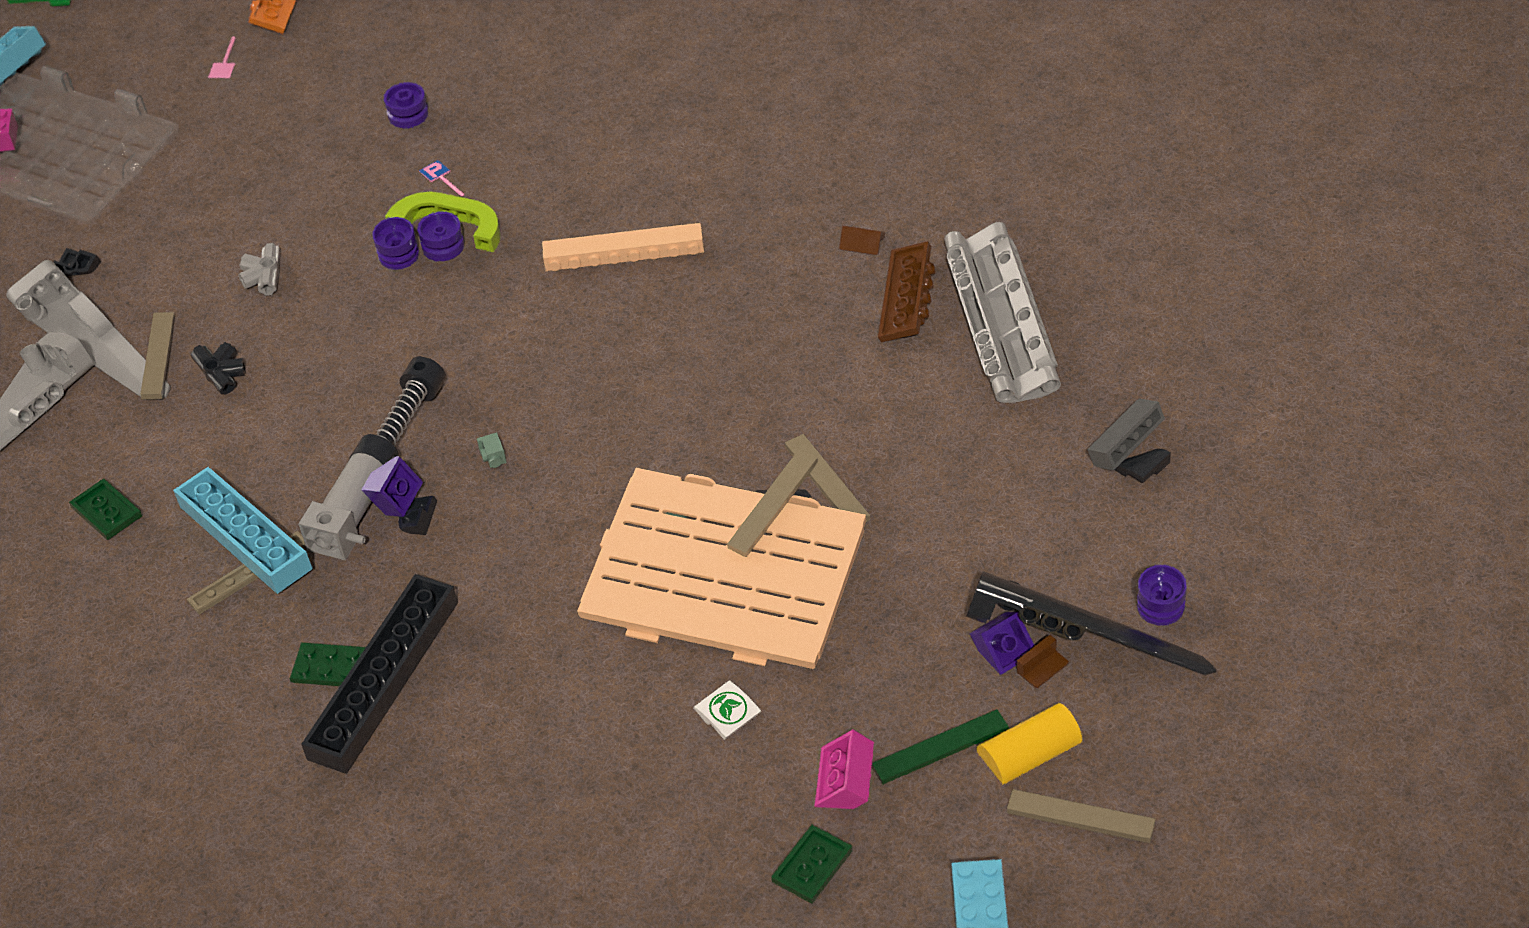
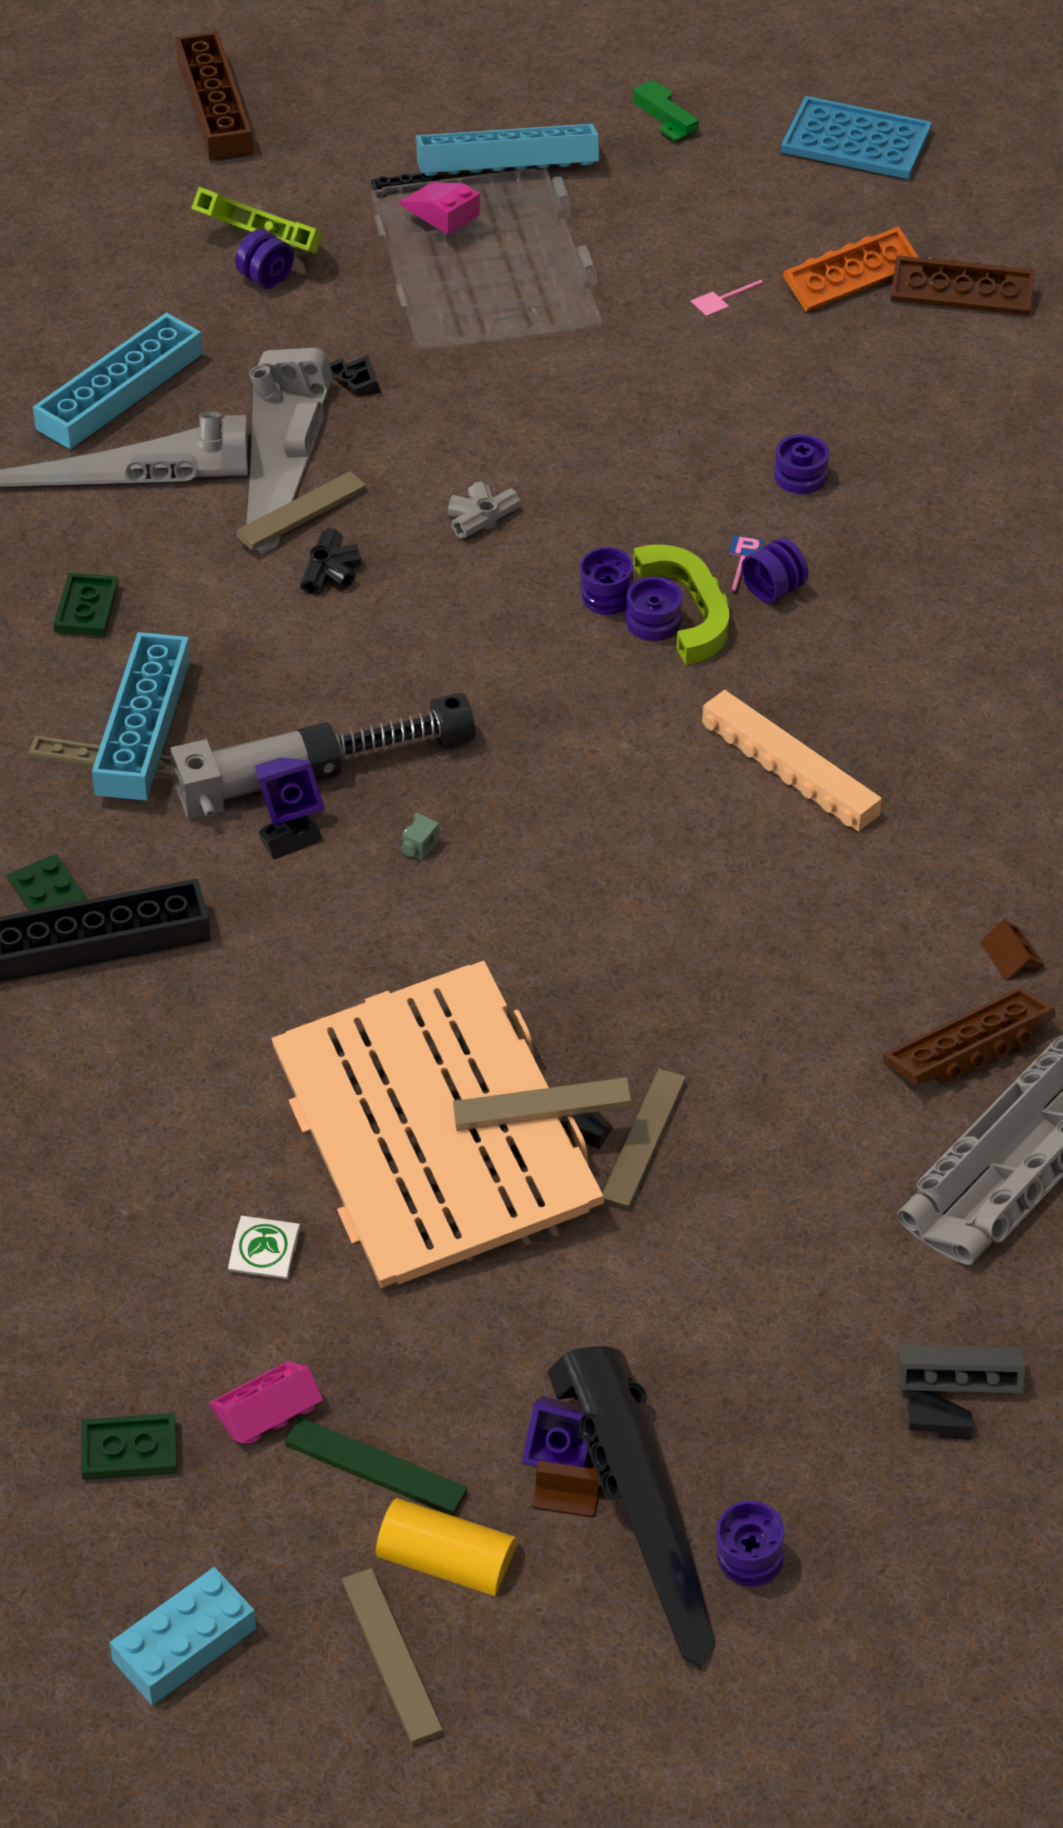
camera: 45 degrees right, 0 degrees up
(477, 164) = (774, 570): none -> dark purple wheel

